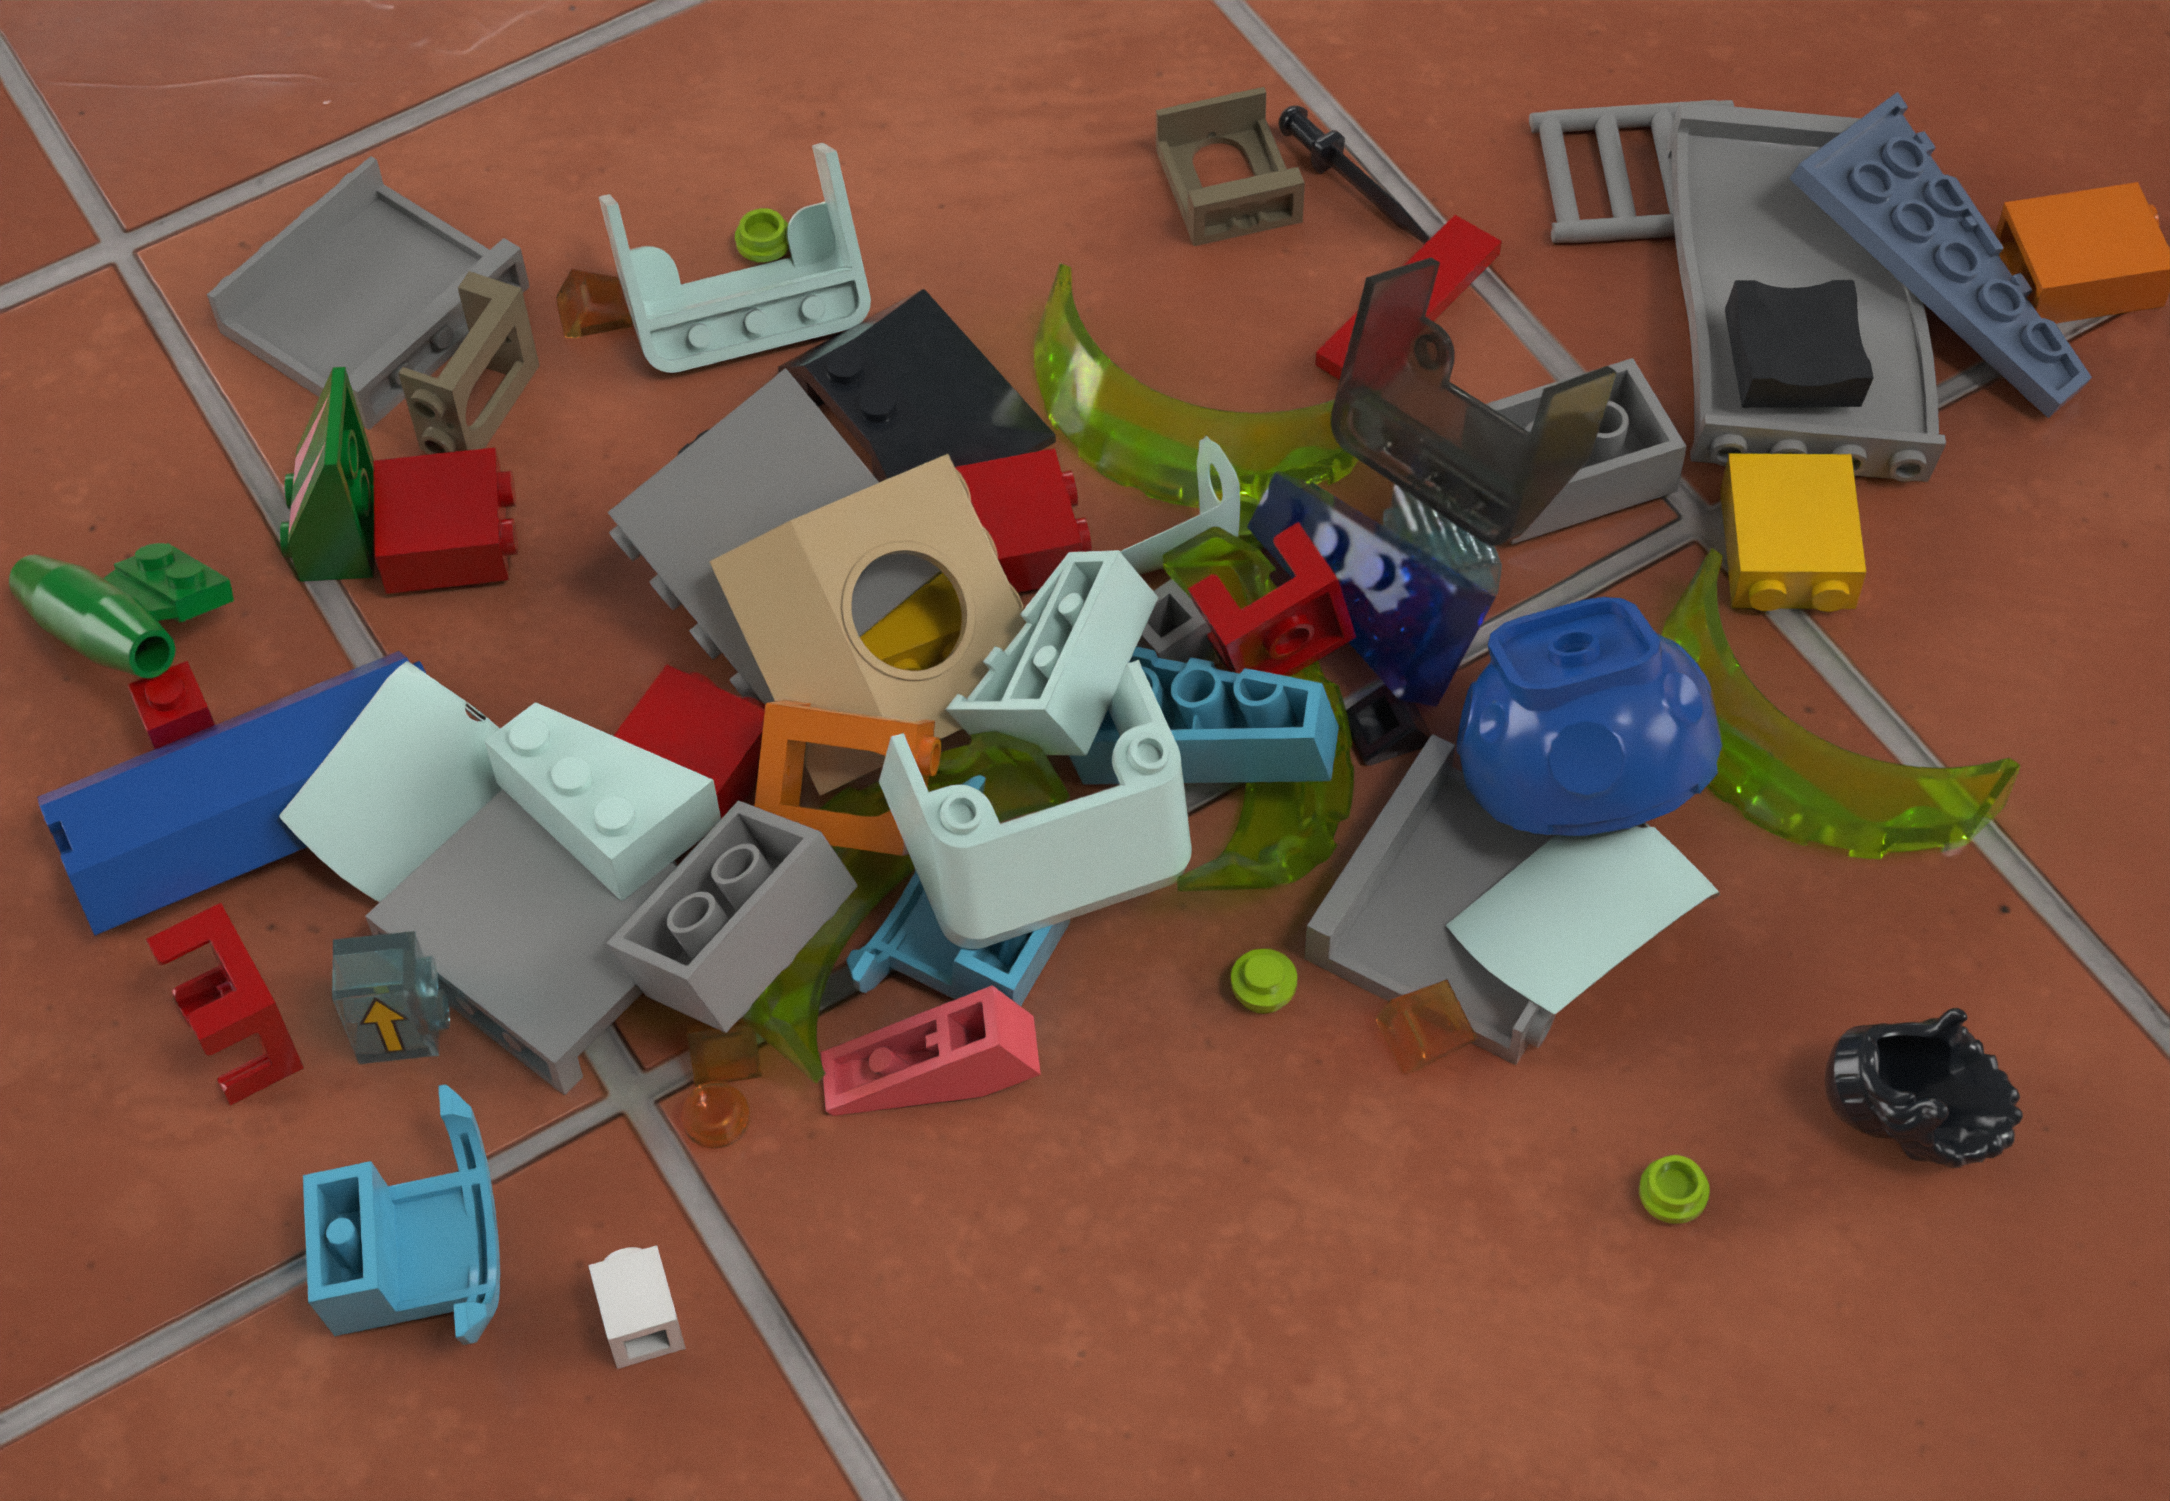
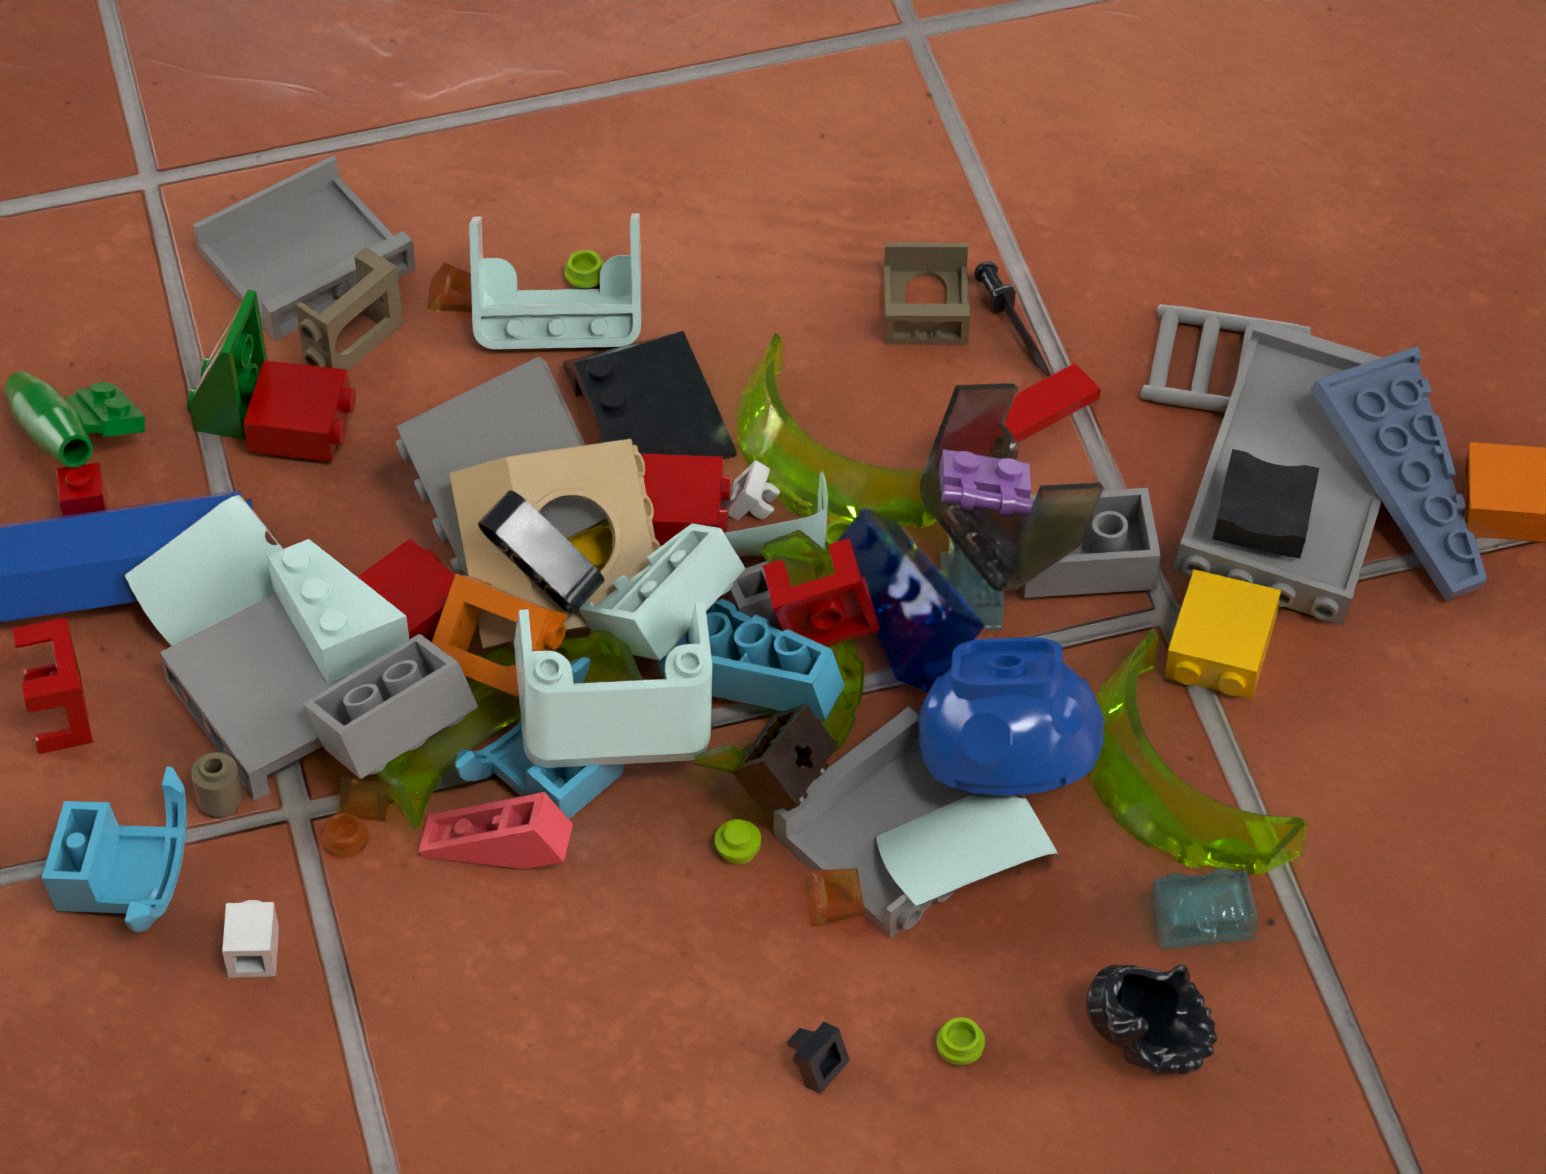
camera: 15 degrees right, 5 degrees down
(388, 997) = (156, 707): clear light blue brick -> none
(511, 1088) = (217, 784): none -> dark tan brick
(877, 643) = (541, 552): none -> beam
(1102, 486) = (750, 490): none -> white tile
(1307, 853) = (785, 759): none -> dark brown brick
(1386, 726) = (886, 697): black slope -> none
(1432, 402) = (985, 483): none -> medium lavender plate
(1493, 1263) = (819, 1055): none -> black tile
(1921, 915) = (1203, 908): none -> clear light blue brick

